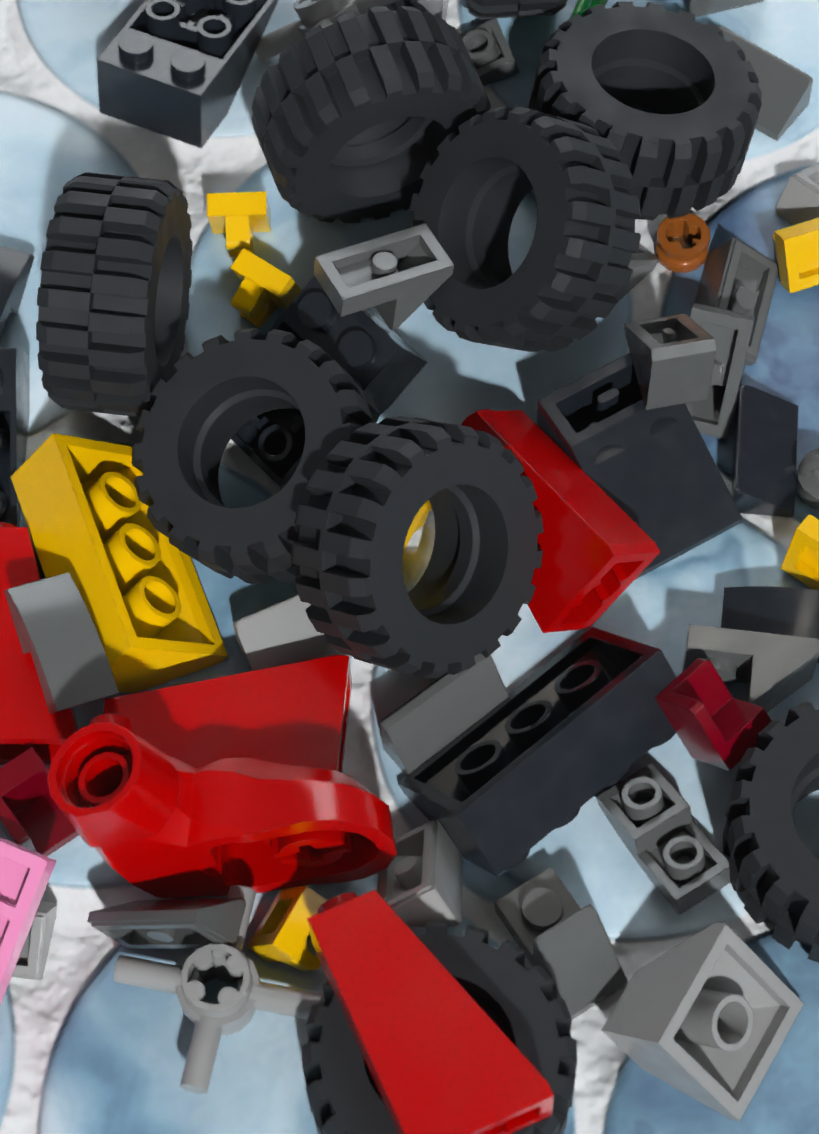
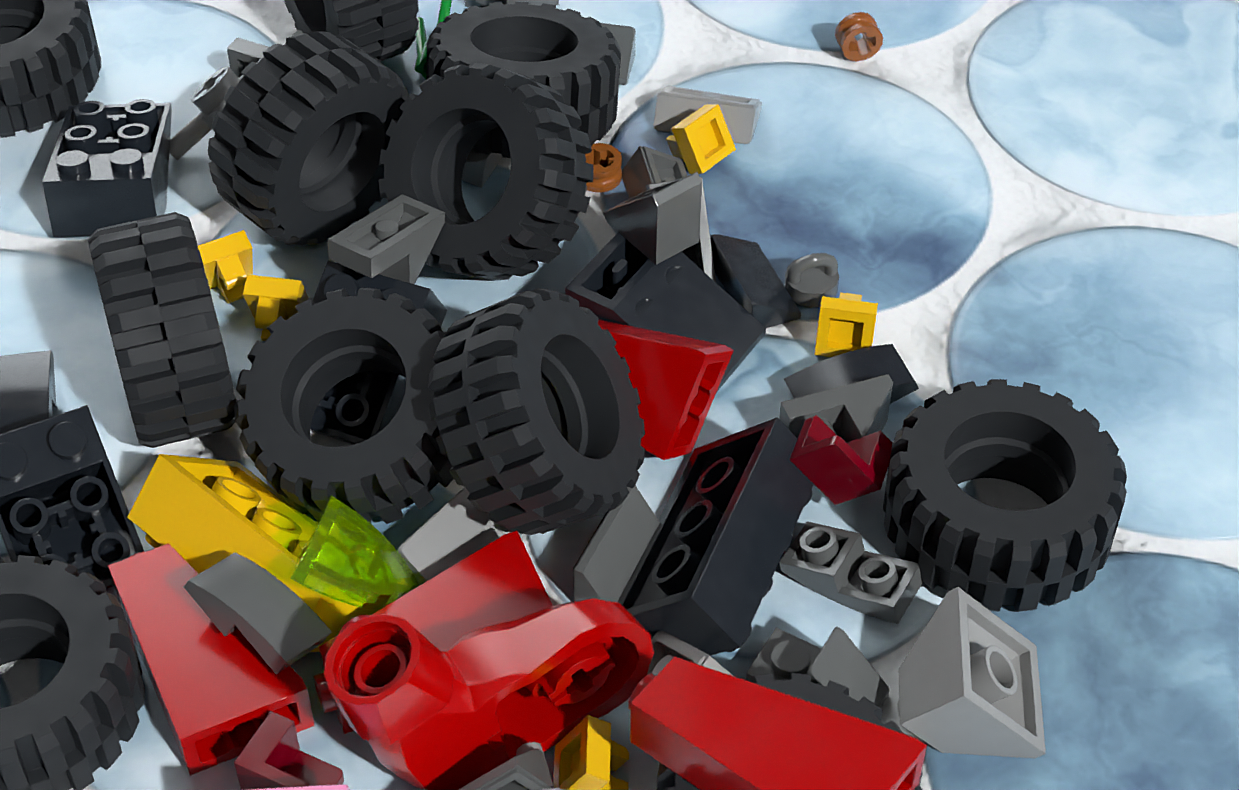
camera: 30 degrees left, 15 degrees down
(174, 626) = (351, 559): none -> clear neon green brick

